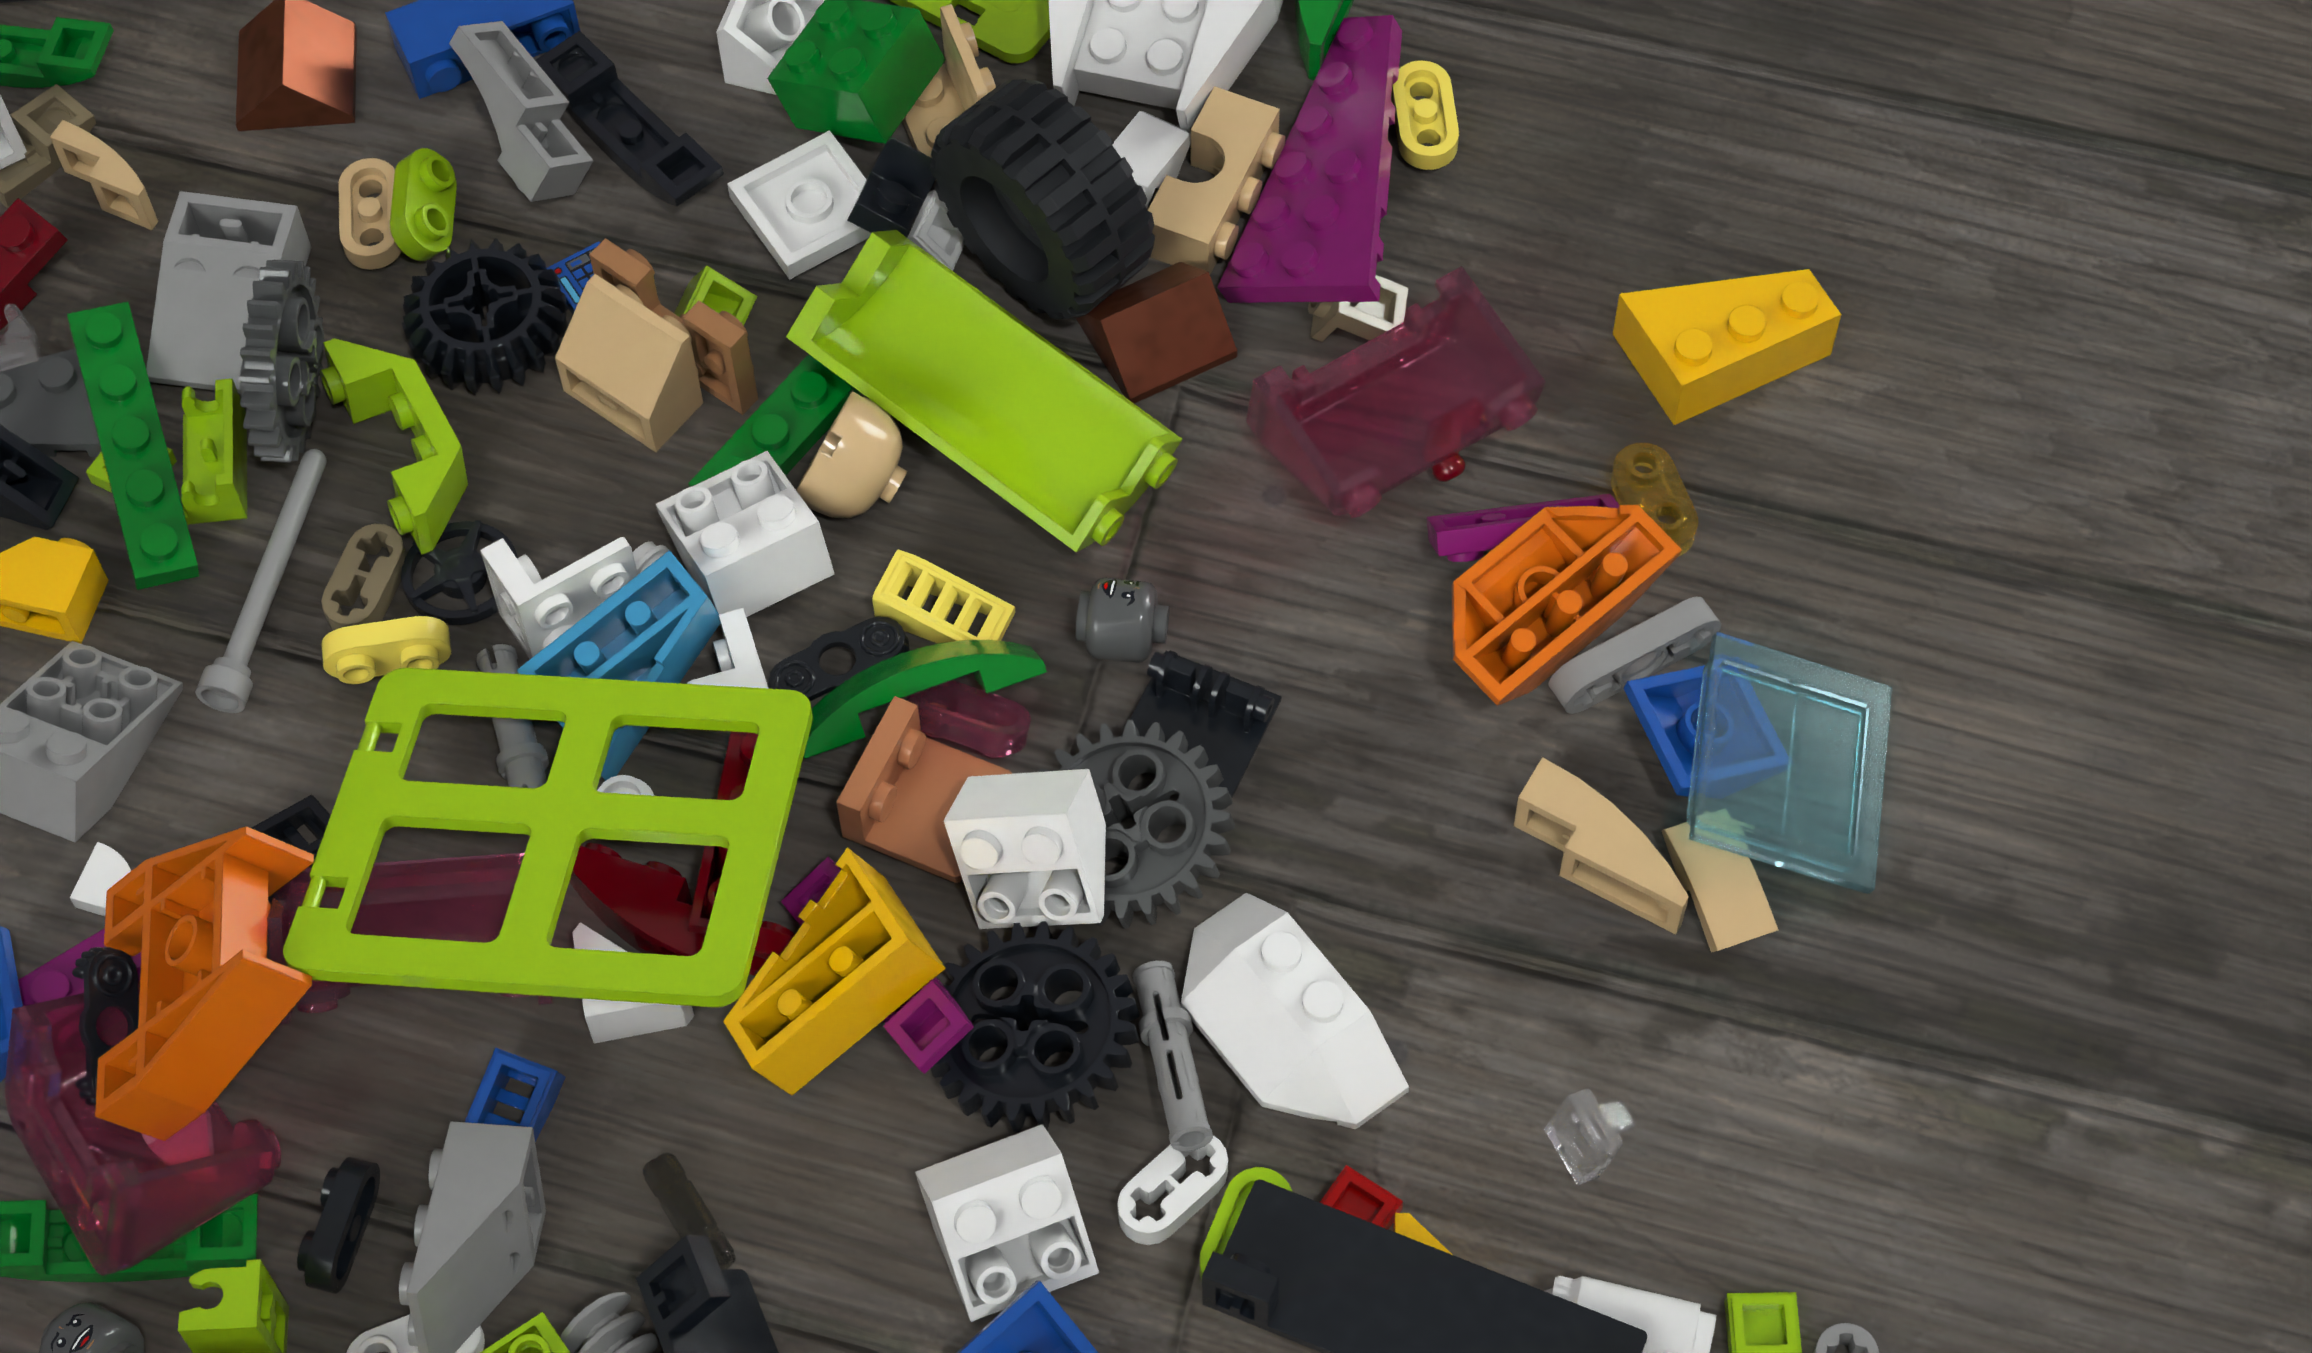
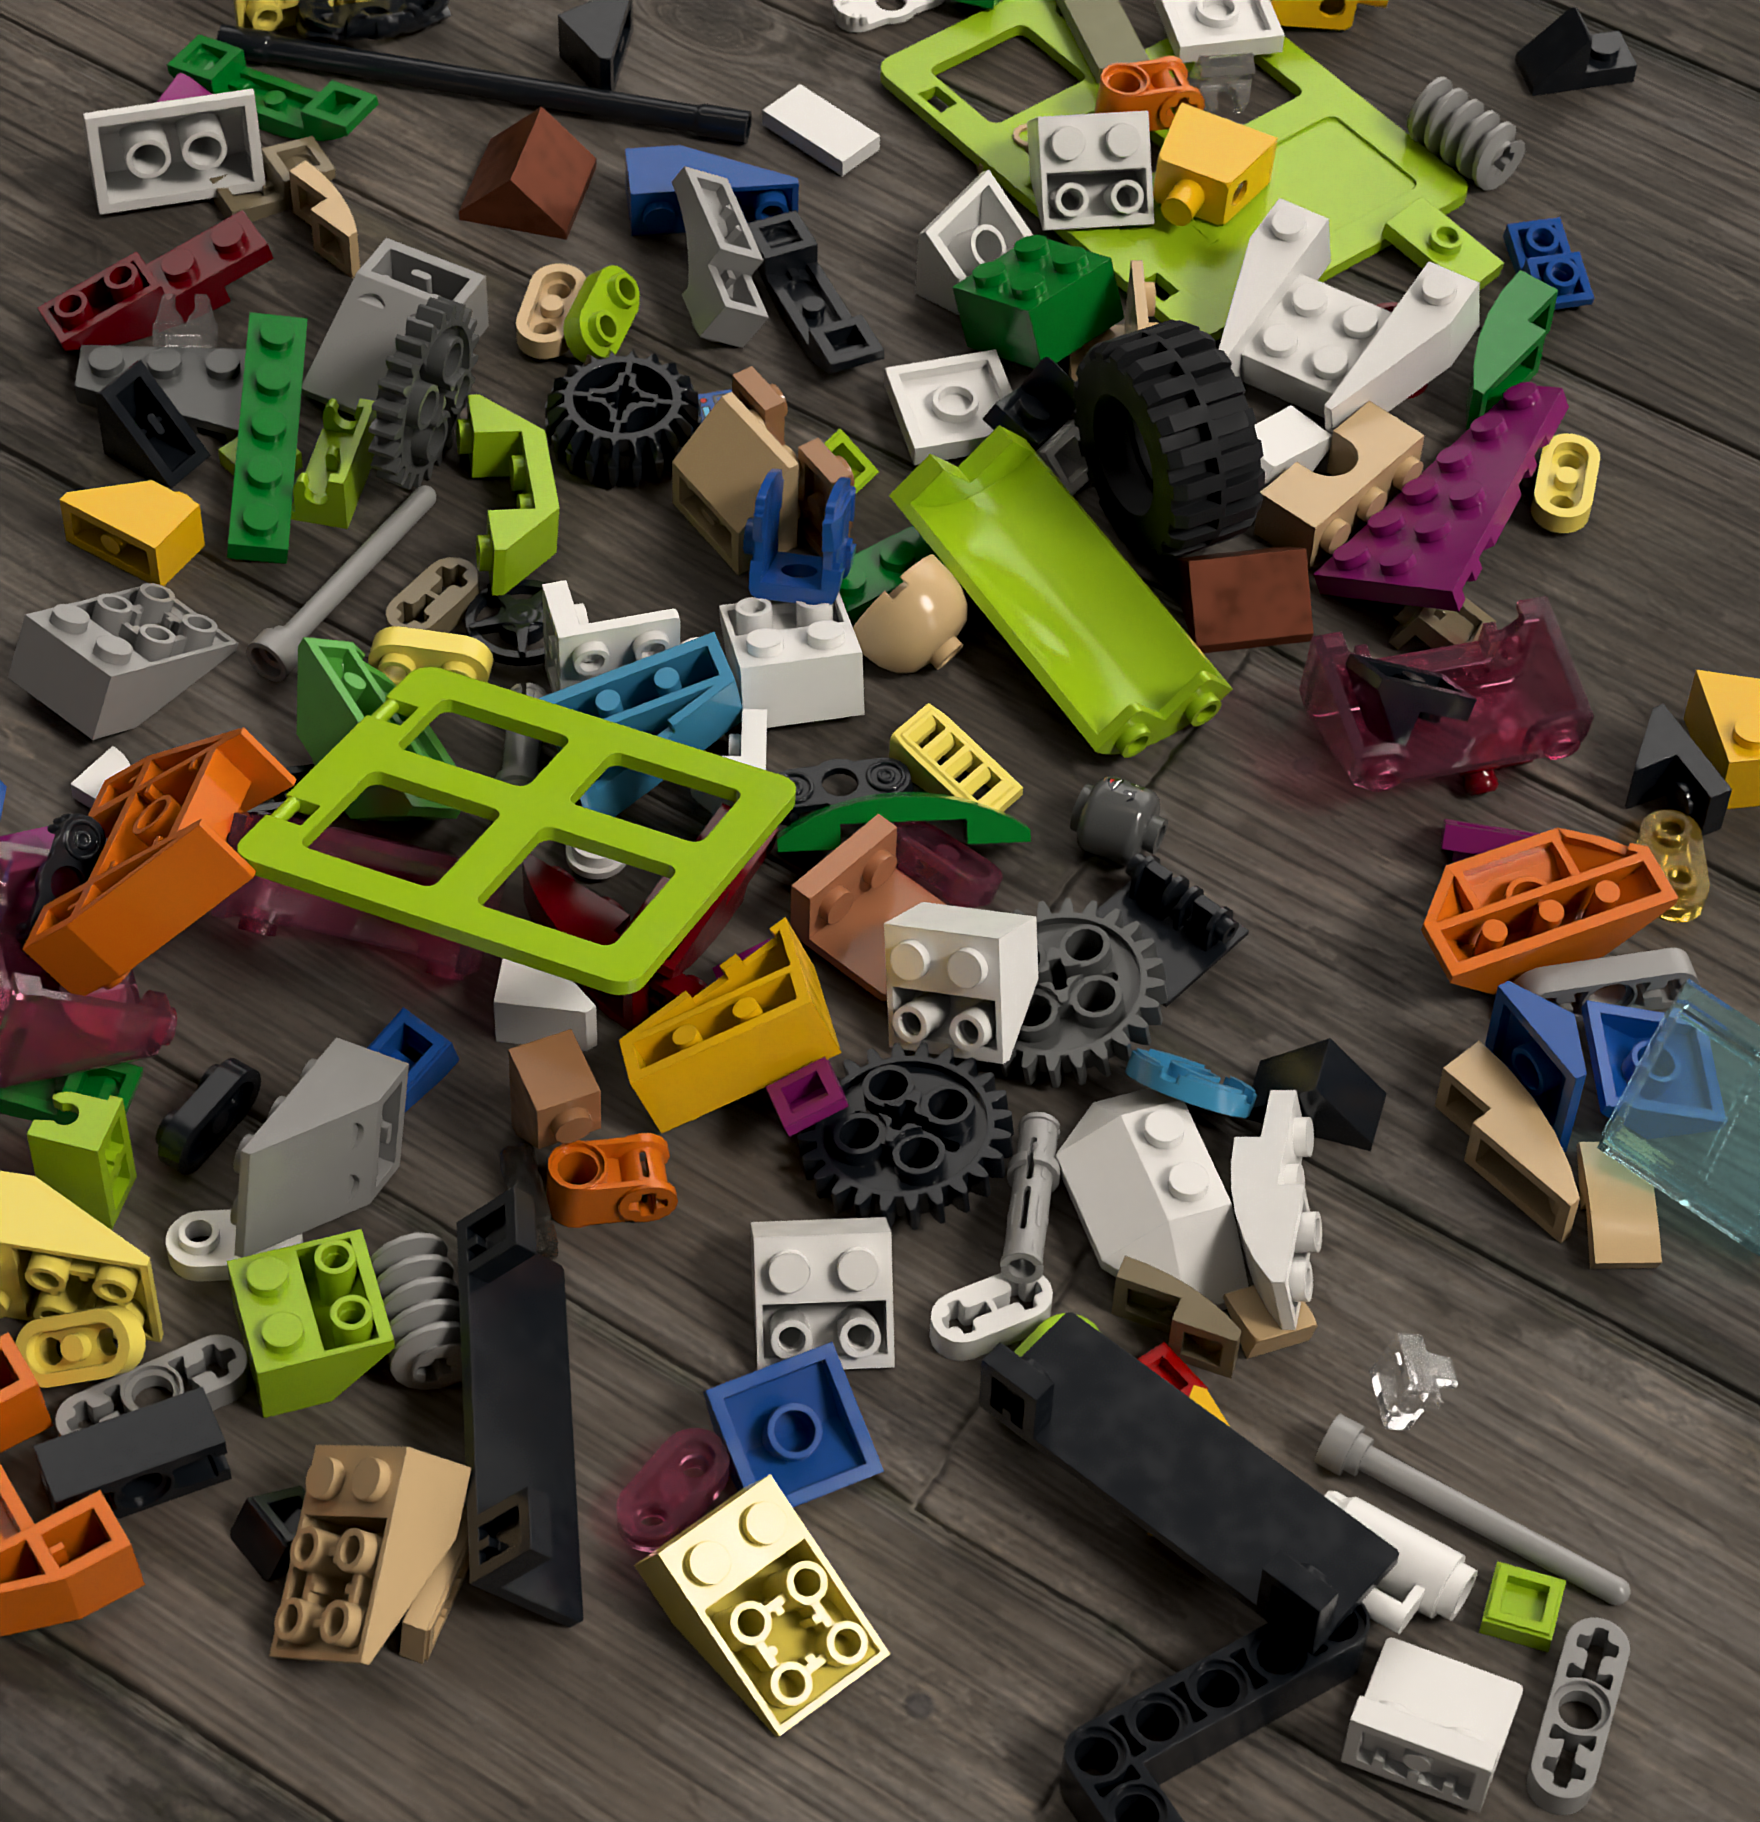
camera: 15 degrees right, 10 degrees down
(318, 725) = (332, 698): none -> bright green wedge
(681, 1104) = (552, 1091): none -> medium nougat slope
(698, 441) = (776, 573): none -> blue piece
(767, 1163) = (610, 1181): none -> orange piece
(1278, 889) = (1190, 1082): none -> dark azure tile
(1352, 405) = (1398, 695): none -> black slope
(1375, 1143) = (1196, 1326): none -> dark tan slope
(1403, 855) = (1330, 1090): none -> black slope
(1409, 998) = (1274, 1207): none -> white slope
(1434, 1104) = (1259, 1329): none -> tan slope
(1557, 1223) = (1352, 1451): none -> light grey piece
(1608, 755) = (1542, 1051): none -> blue slope
(1625, 394) = (1677, 767): none -> black slope

